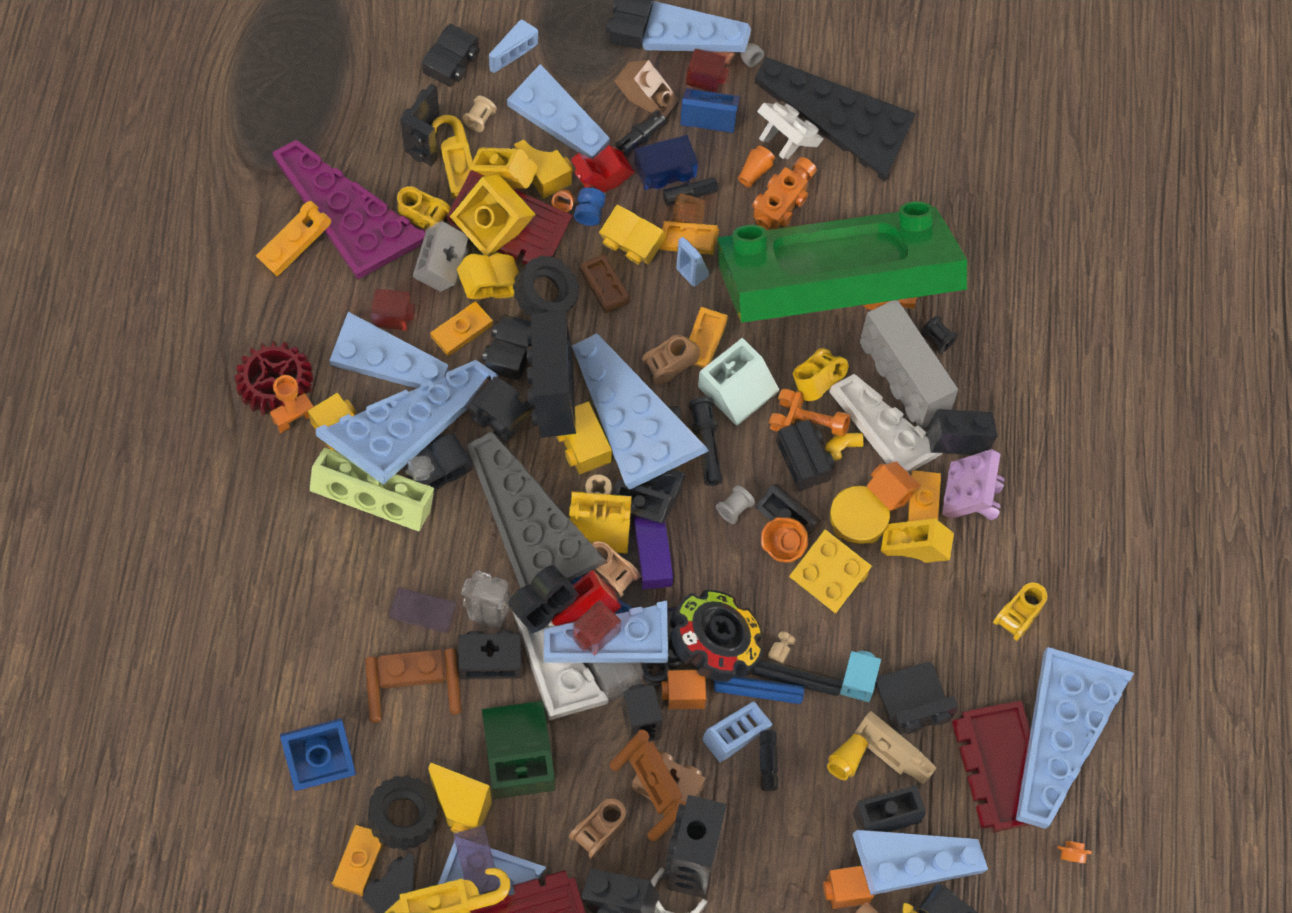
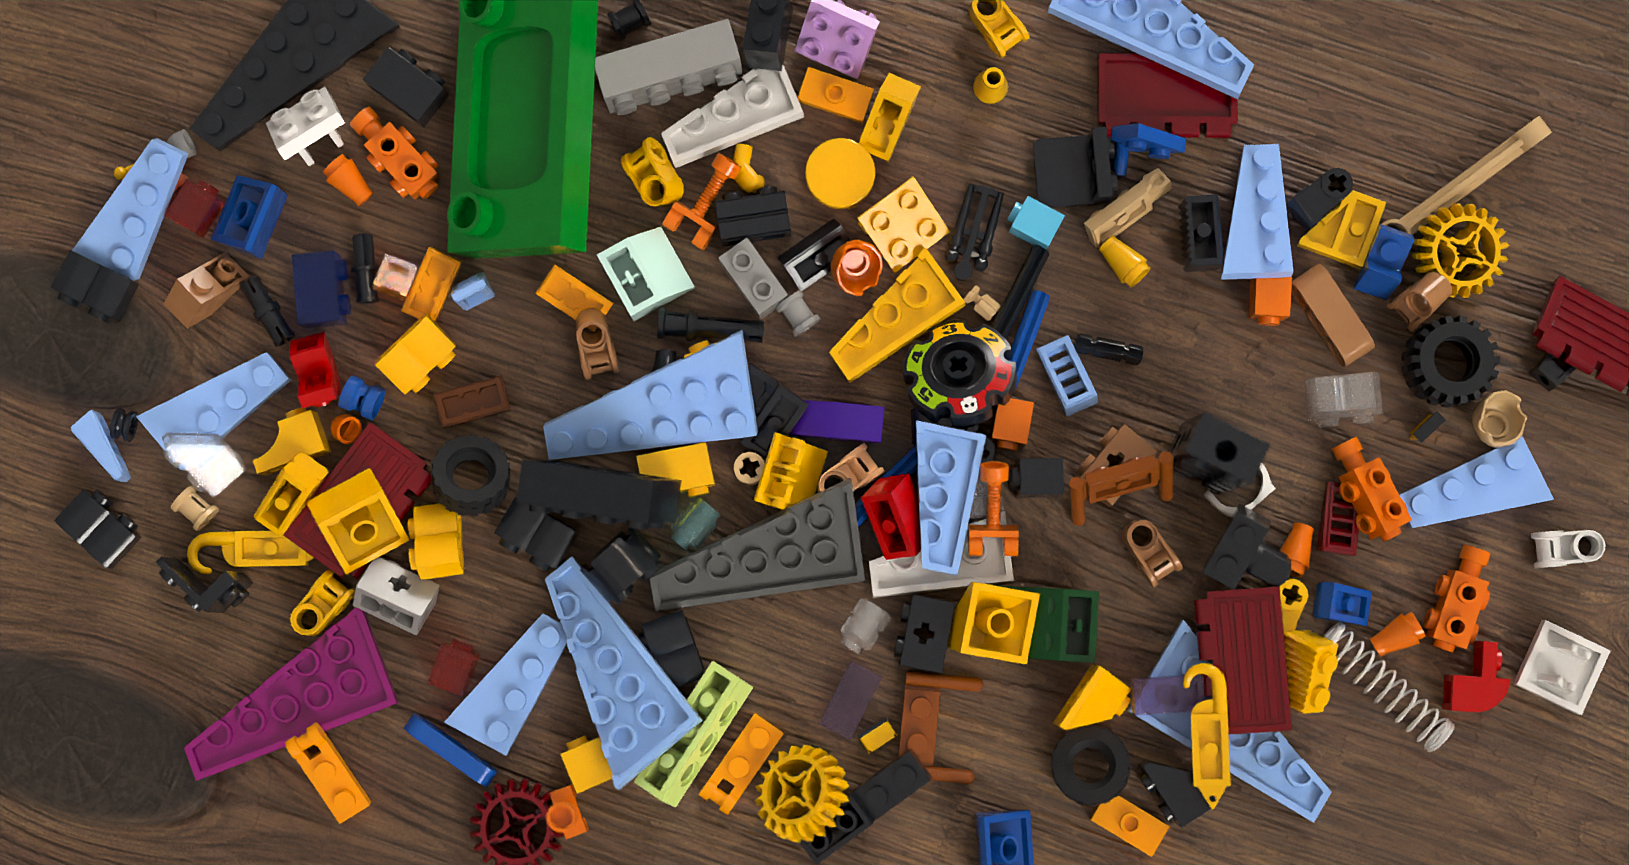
camera: 75 degrees left, 20 degrees up
(326, 320) = (450, 749): none -> blue beam
(334, 634) = (869, 803): none -> black slope
(337, 578) = (783, 801): none -> yellow gear
(355, 536) = (742, 762): none -> light orange plate
(397, 637) = (877, 735): none -> yellow piece
(420, 468) = (686, 672): clear plate -> none
(461, 328) = (495, 587): light orange plate -> none
(510, 702) = (994, 622): none -> yellow slope
(518, 109) = (206, 458): none -> clear slope
(531, 57) = (124, 424): none -> black bush
(542, 598) = (884, 562): black brick -> none
(543, 460) = (694, 524): none -> clear light blue brick
(581, 704) = (994, 474): none -> orange bar
(596, 628) = (941, 509): clear red brick -> none
(755, 462) = (753, 278): none -> light grey brick
(769, 596) = (901, 315): none -> yellow wing
(804, 626) = (963, 269): none -> black piece
(838, 190) = (406, 86): none -> black brick
(892, 485) = (817, 126): orange brick -> none
(956, 737) = (1140, 139): none -> blue plate
(968, 617) = (988, 92): none -> yellow cone
(1074, 852) = (1280, 46): orange plate -> none

